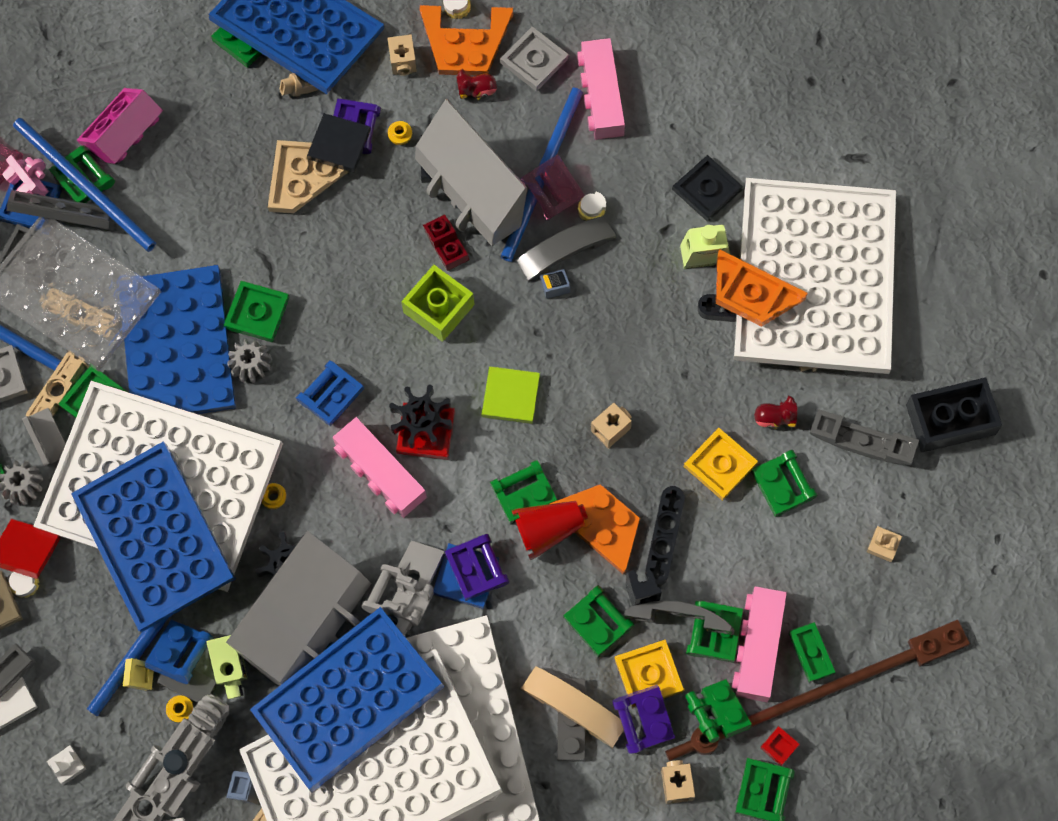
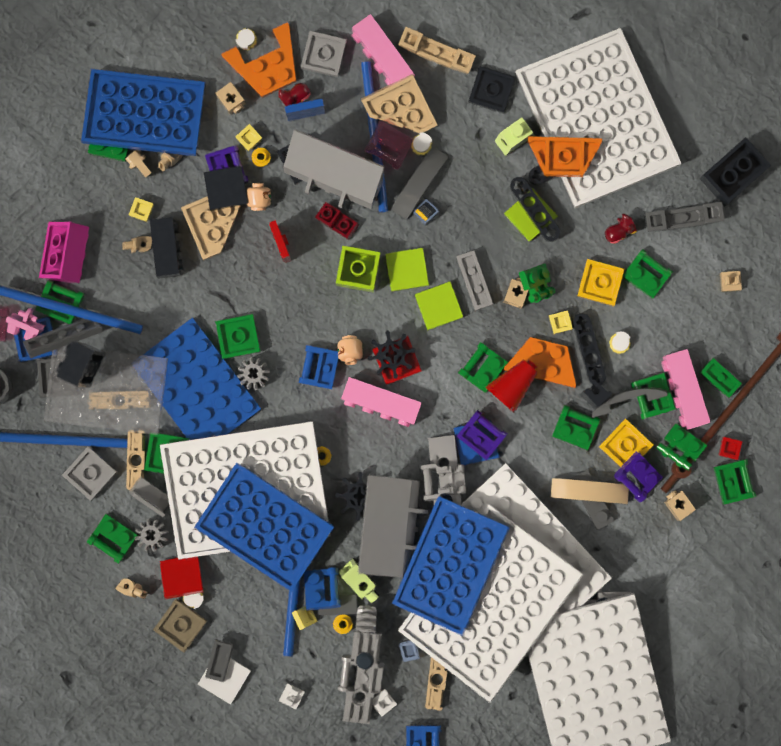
camera: 30 degrees left, 15 degrees up
(53, 237) = (80, 364): none -> black brick
(204, 153) = (135, 244): none -> tan piece
(232, 122) = (141, 209): none -> light yellow plate
(234, 175) = (166, 247): none -> black brick
(259, 70) = (135, 160): none -> tan piece
(365, 227) = (281, 241): none -> red plate
(371, 171) = (258, 197): none -> light nougat head
(376, 390) = (350, 350): none -> light nougat head
(398, 105) = (248, 137): none -> light yellow plate
(477, 102) = (305, 109): none -> blue tile
(496, 335) = (407, 269): none -> lime tile
(569, 386) = (474, 280): none -> light grey plate
(590, 150) = (401, 105): none -> tan plate
(644, 415) = (537, 278): none -> green plate
(646, 485) = (560, 322): none -> light yellow plate
(663, 115) = (435, 51): none -> tan slope
(677, 346) = (522, 222): none -> lime tile
(682, 340) = (537, 207): none -> black beam
(708, 547) = (620, 342): none -> white piece

